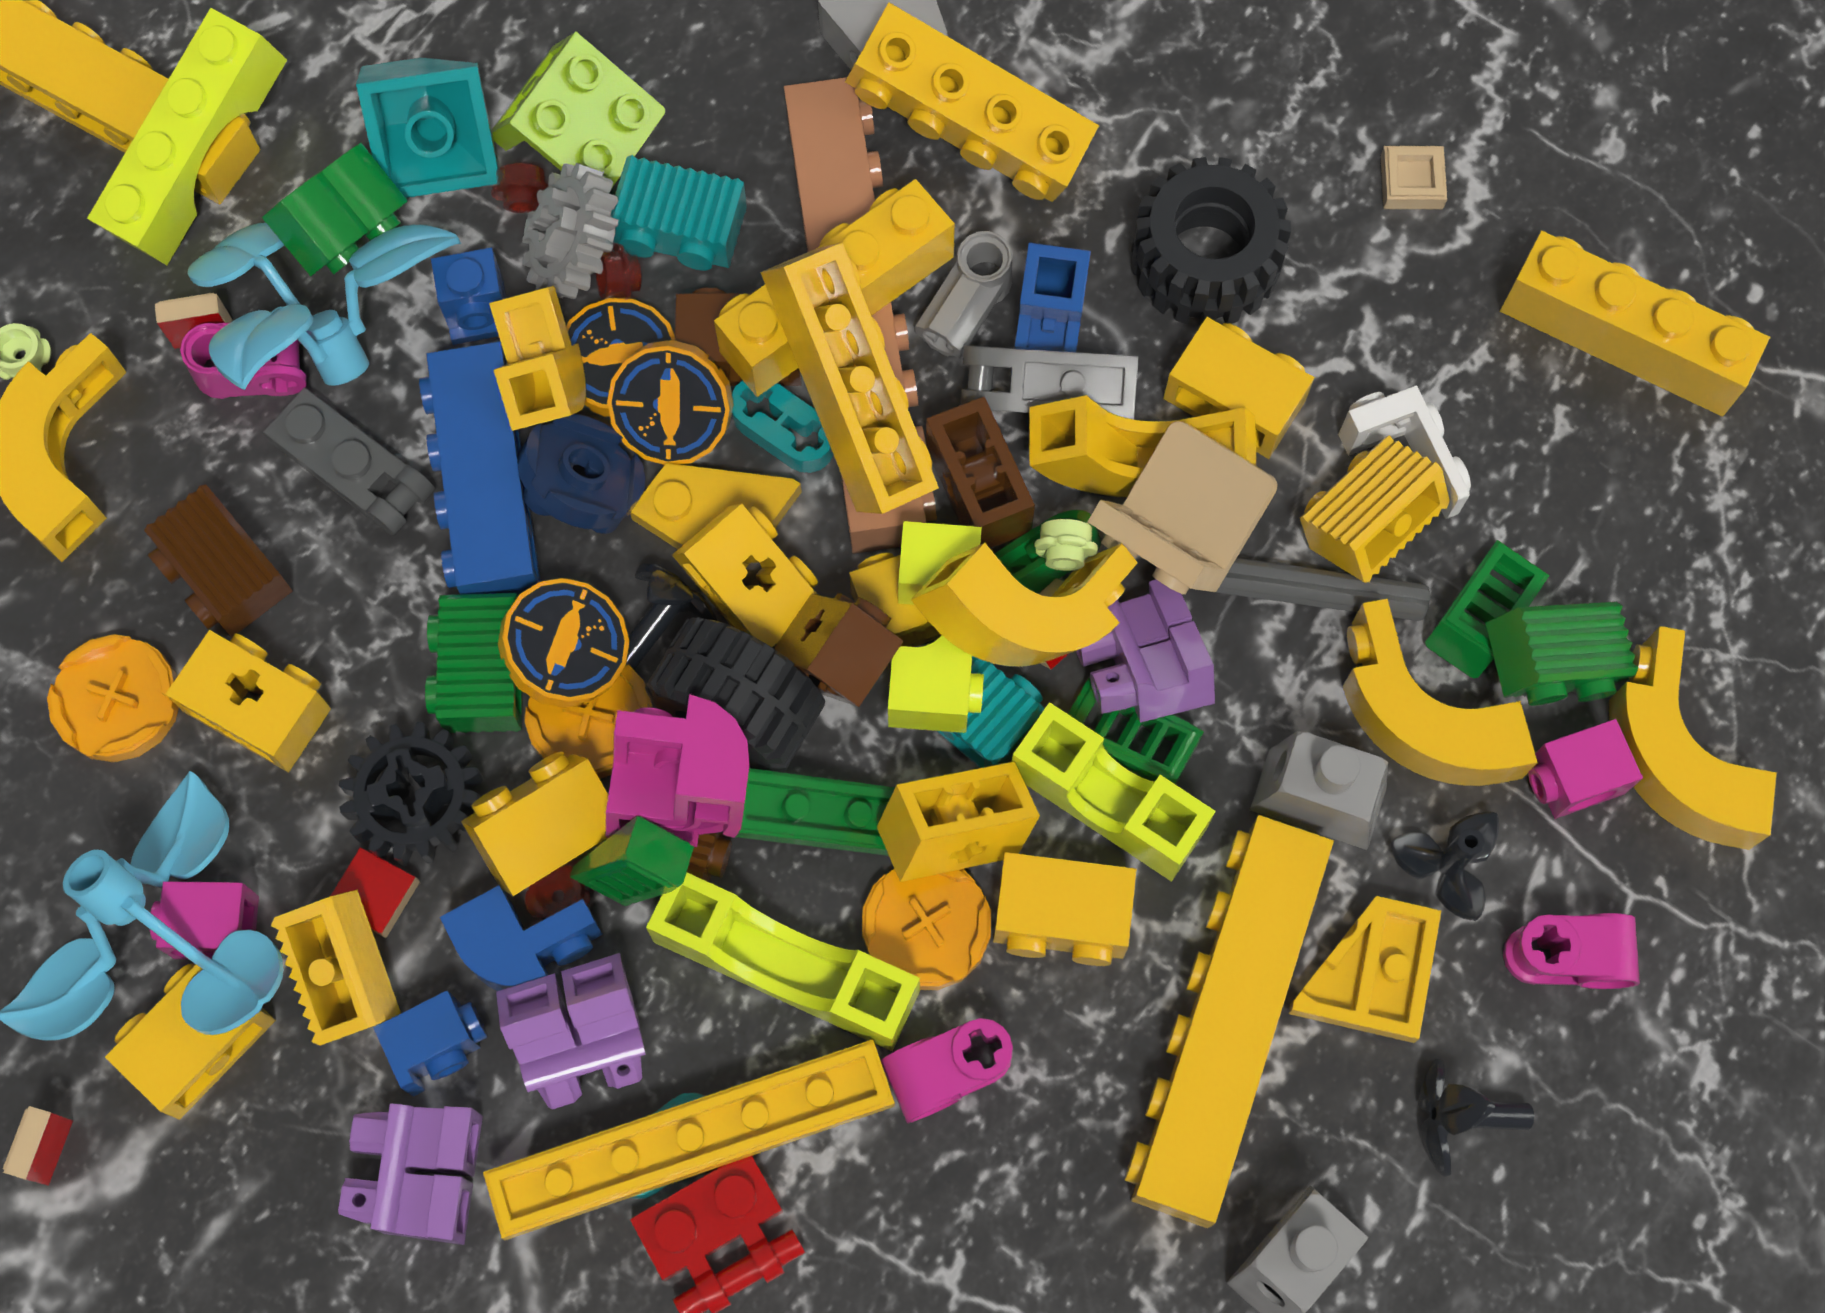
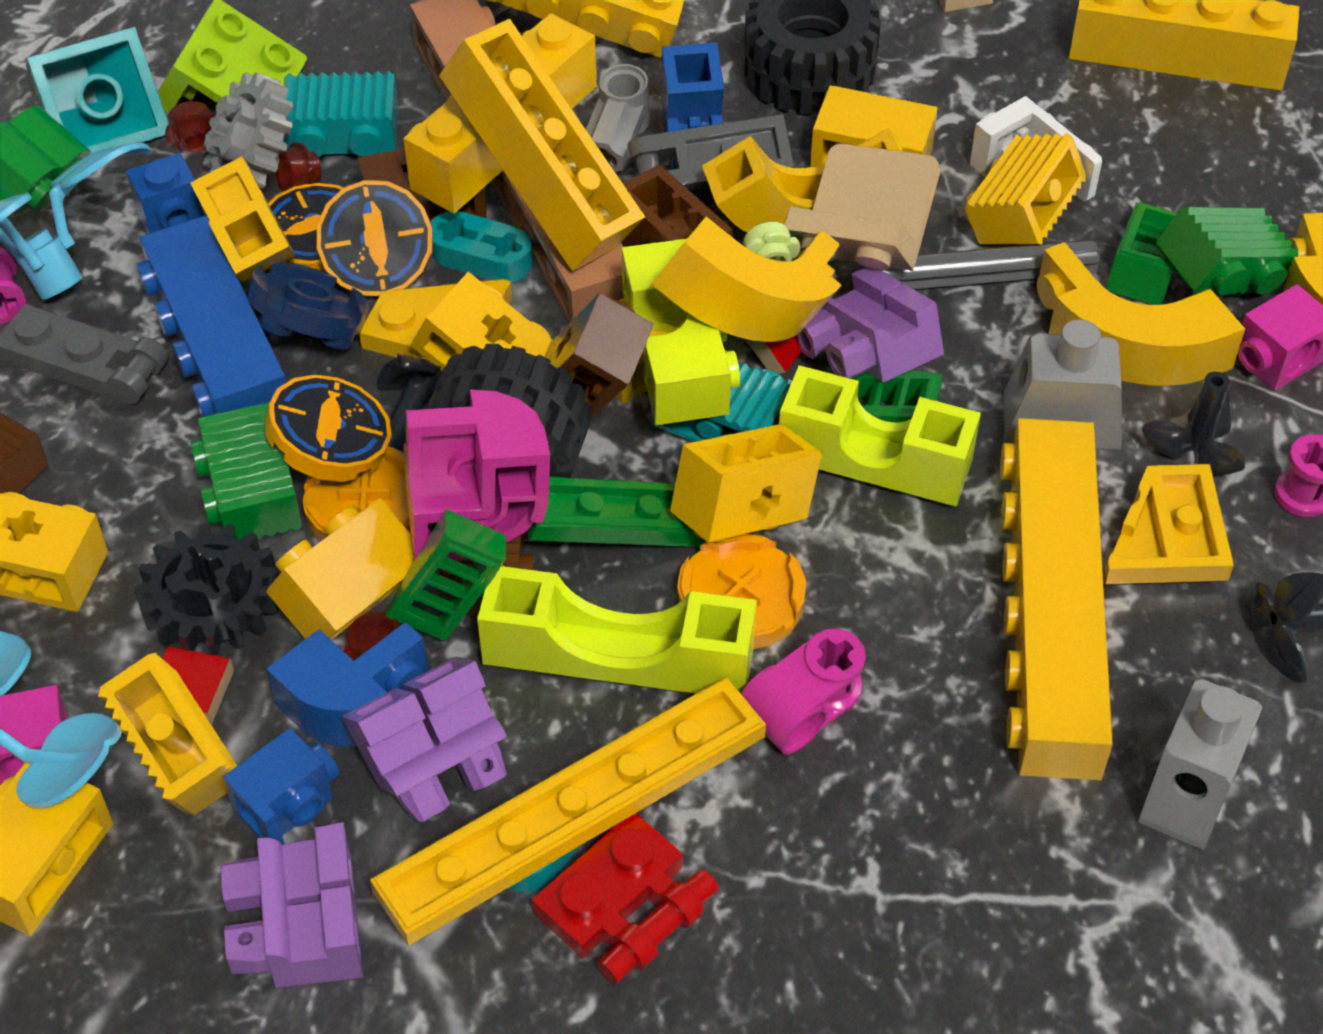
camera: 15 degrees left, 20 degrees down
(1064, 908) = (867, 539): yellow brick -> none

